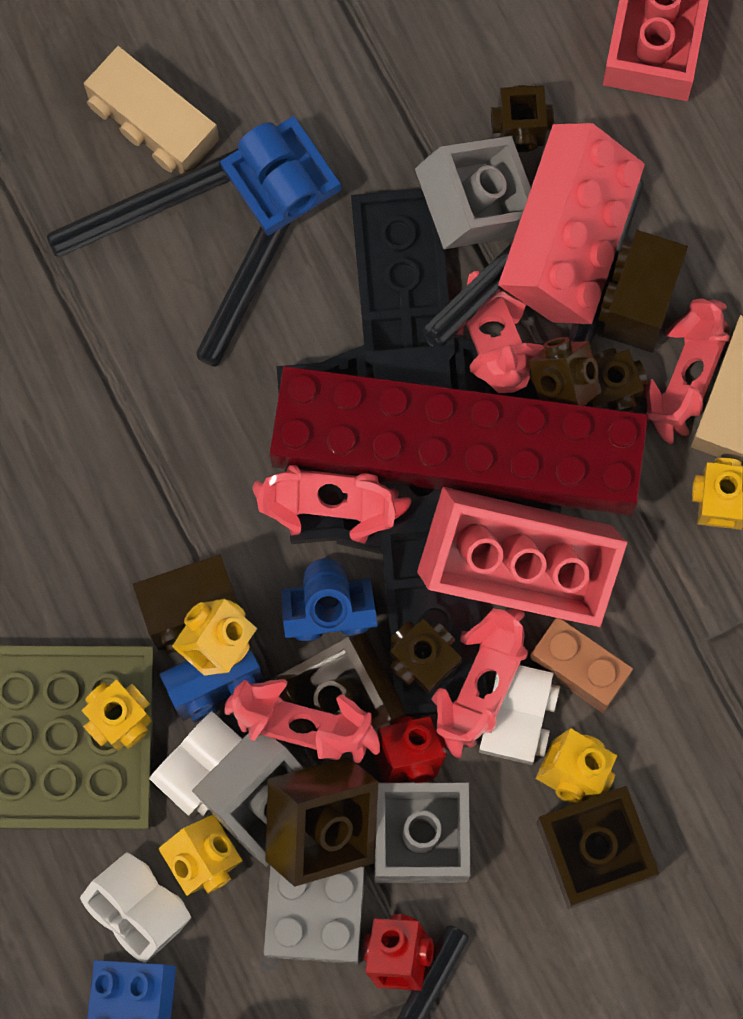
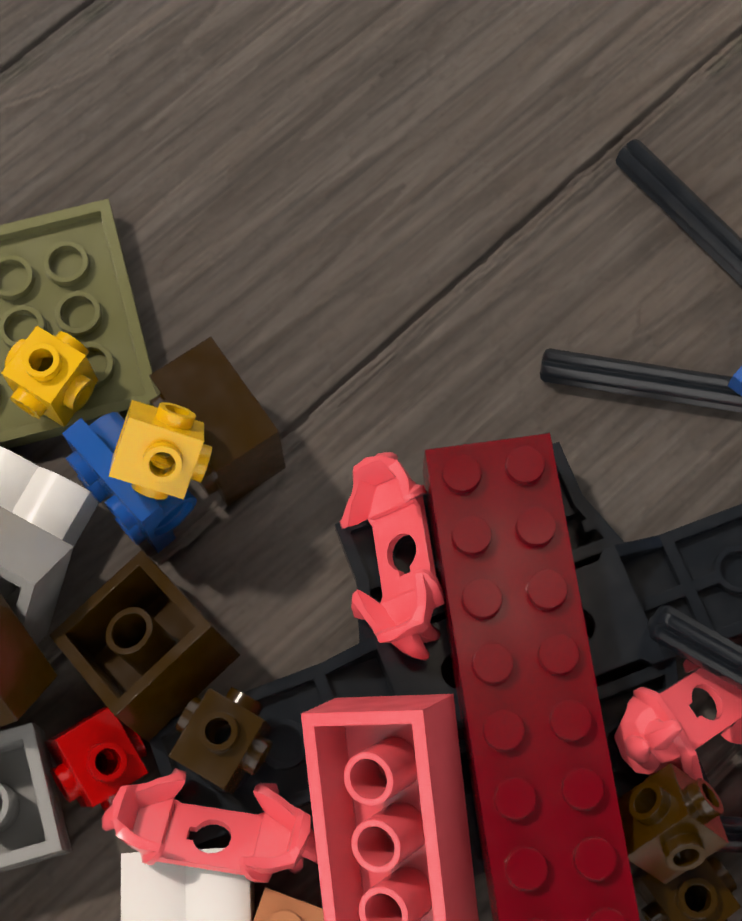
camera: 70 degrees right, 5 degrees down
(265, 713) = (83, 554): coral piece -> none
(327, 603) = (264, 596): blue plate -> none

